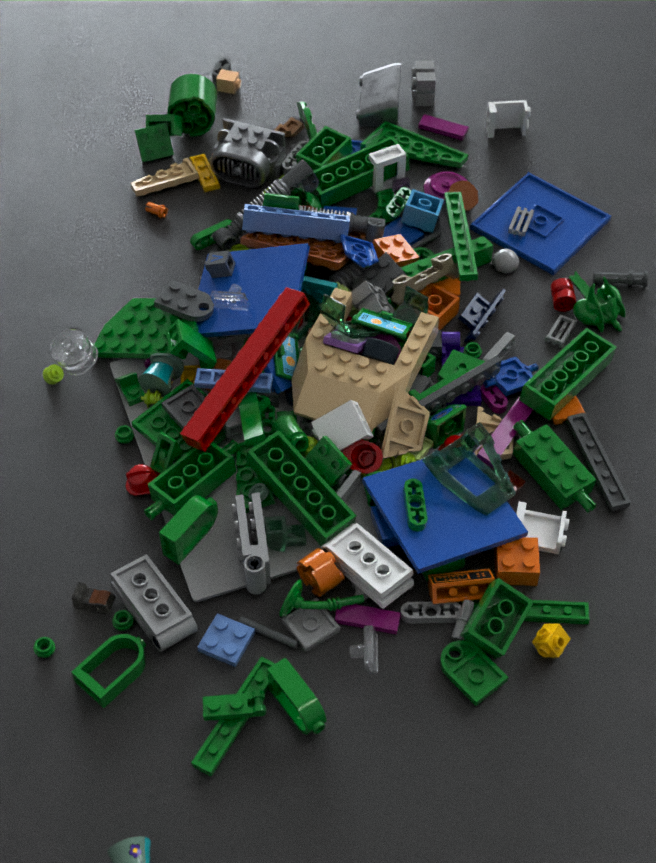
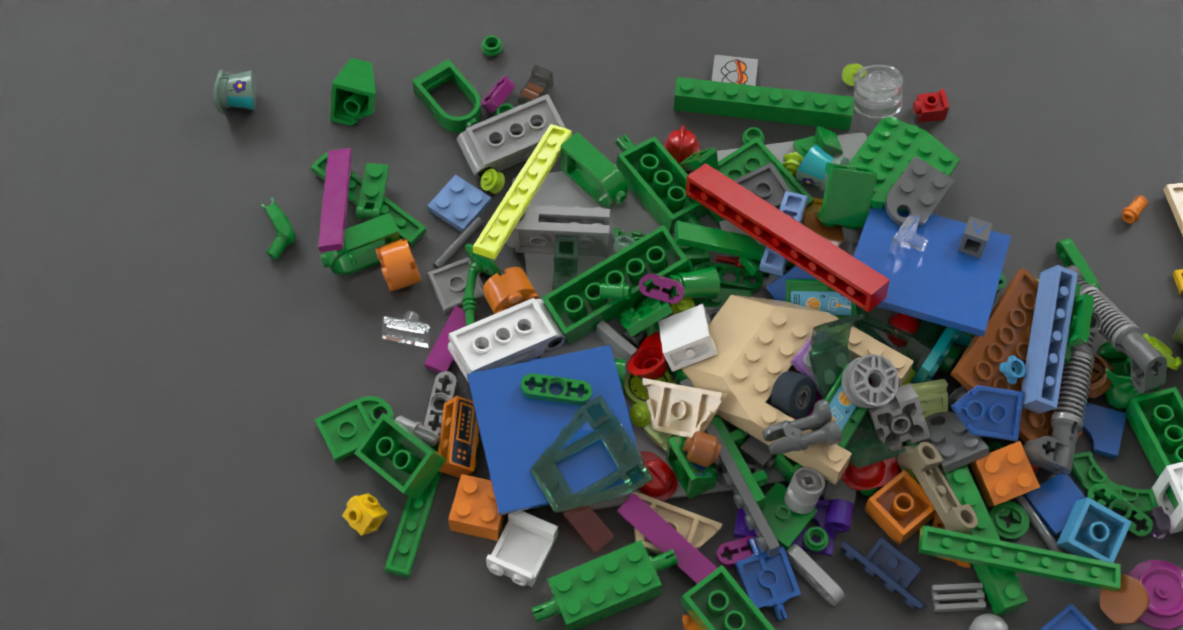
camera: 100 degrees right, 10 degrees up
(61, 456) = (735, 70): none -> light grey tile
(79, 320) = (931, 106): none -> red brick
(90, 431) = (763, 103): none -> green brick
(104, 625) = (497, 94): none -> magenta beam
(117, 749) = (353, 93): none -> green slope
(201, 613) = (492, 181): none -> lime wheel
(229, 561) = (521, 192): none -> neon yellow tile
(257, 723) = (335, 200): none -> magenta tile
(285, 780) = (283, 228): none -> green arm
(311, 445) = (660, 294): none -> magenta beam
(311, 662) = (398, 264): none -> orange brick
(317, 476) = (616, 291): none -> green pin
(323, 240) = (1017, 366): none -> dark azure plate
(363, 303) = (883, 377): none -> light grey wheel
(414, 318) = (792, 431): none -> dark grey piece
(438, 403) = (702, 449): none -> dark orange head
(446, 350) = (804, 490): none -> light grey wheel
(487, 269) = (980, 605): none -> light grey tile

